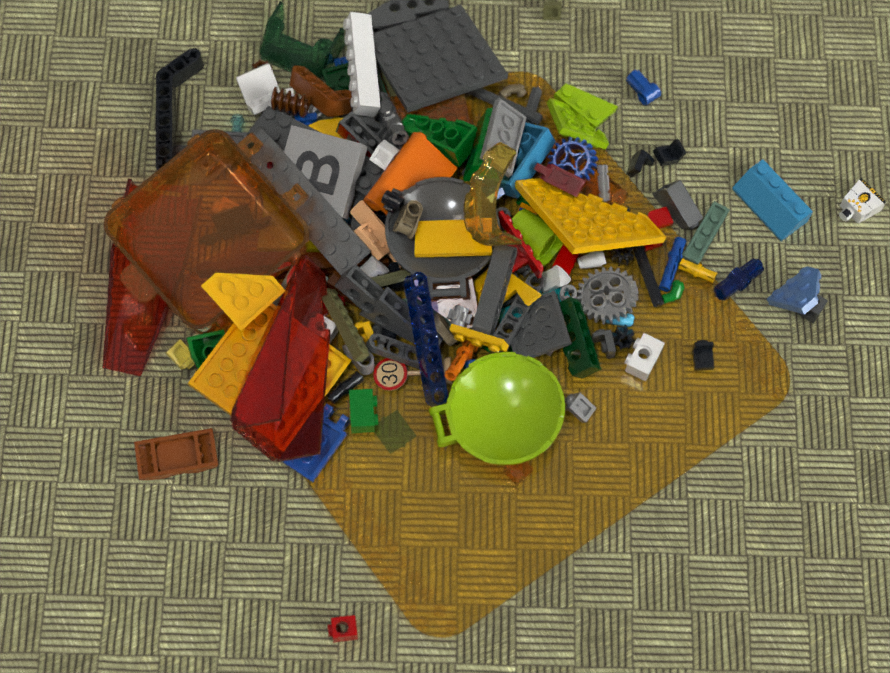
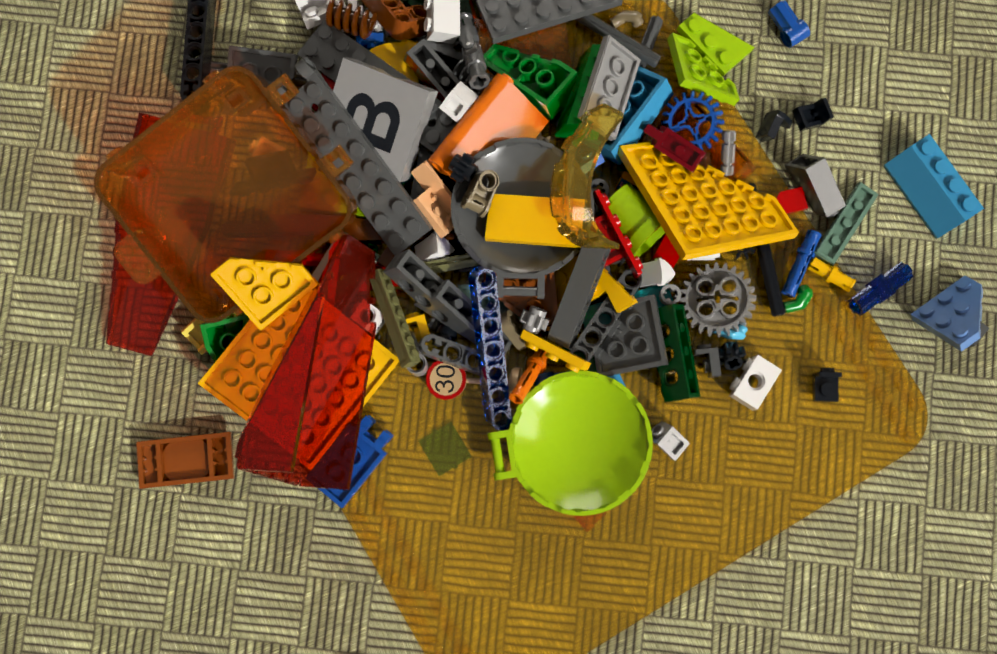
camera: 10 degrees right, 15 degrees up
(237, 123) = (287, 39): clear light blue pin -> none
(344, 387) = (390, 392): black pin -> none
(362, 410) = (408, 425): green brick -> none

